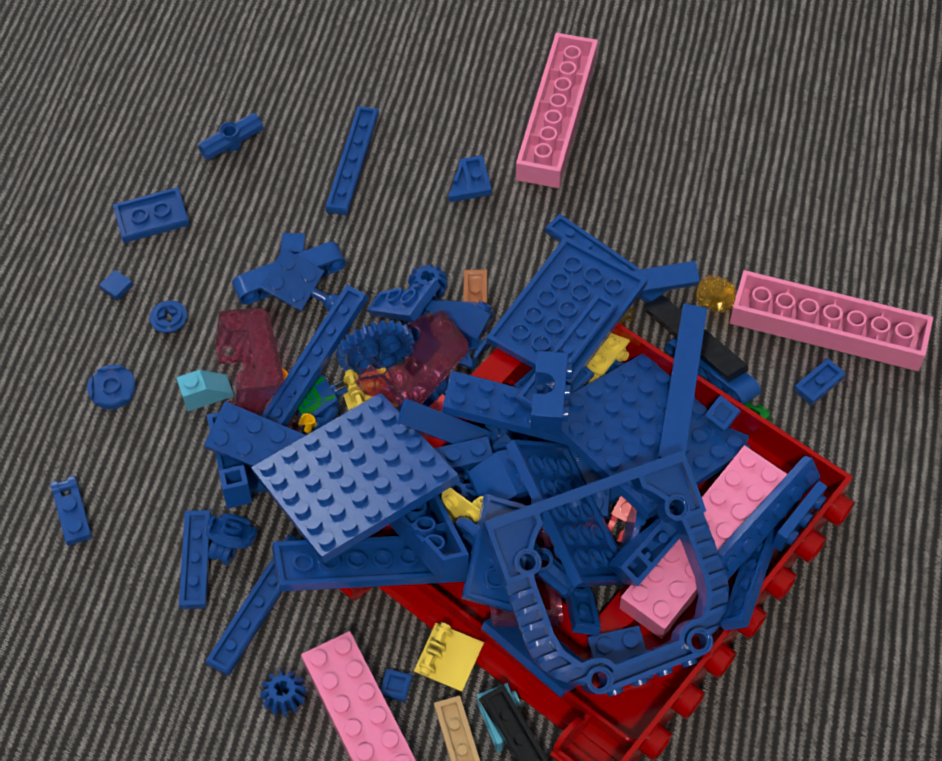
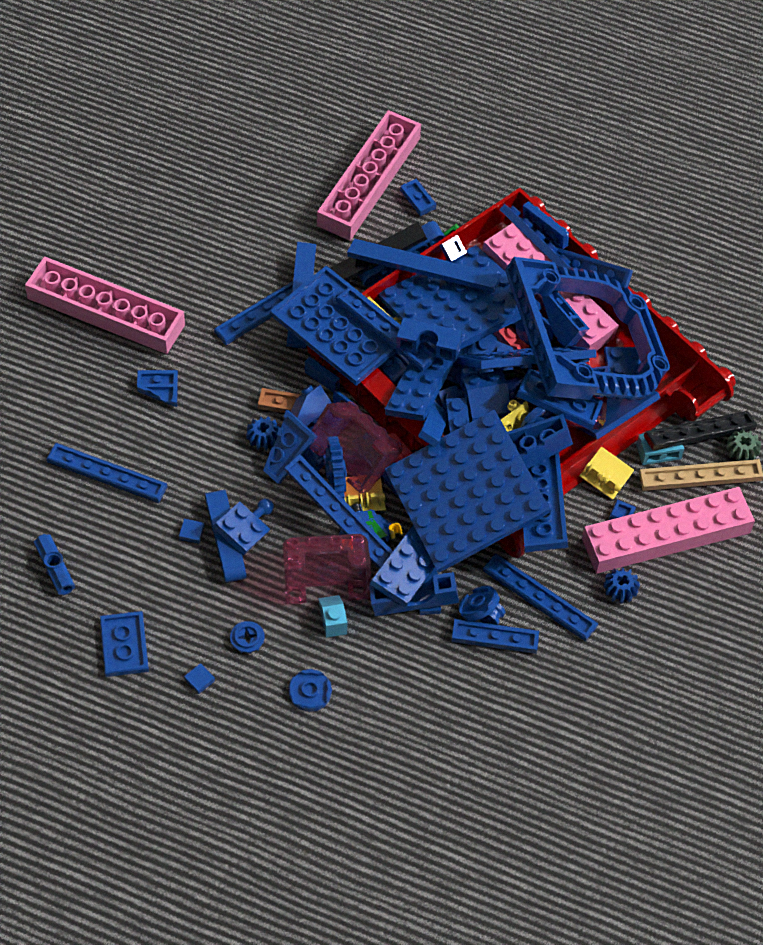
camera: 85 degrees left, 0 degrees up
(71, 511) = (430, 729): blue plate -> none
(716, 294) = (328, 238): clear yellow gear -> none

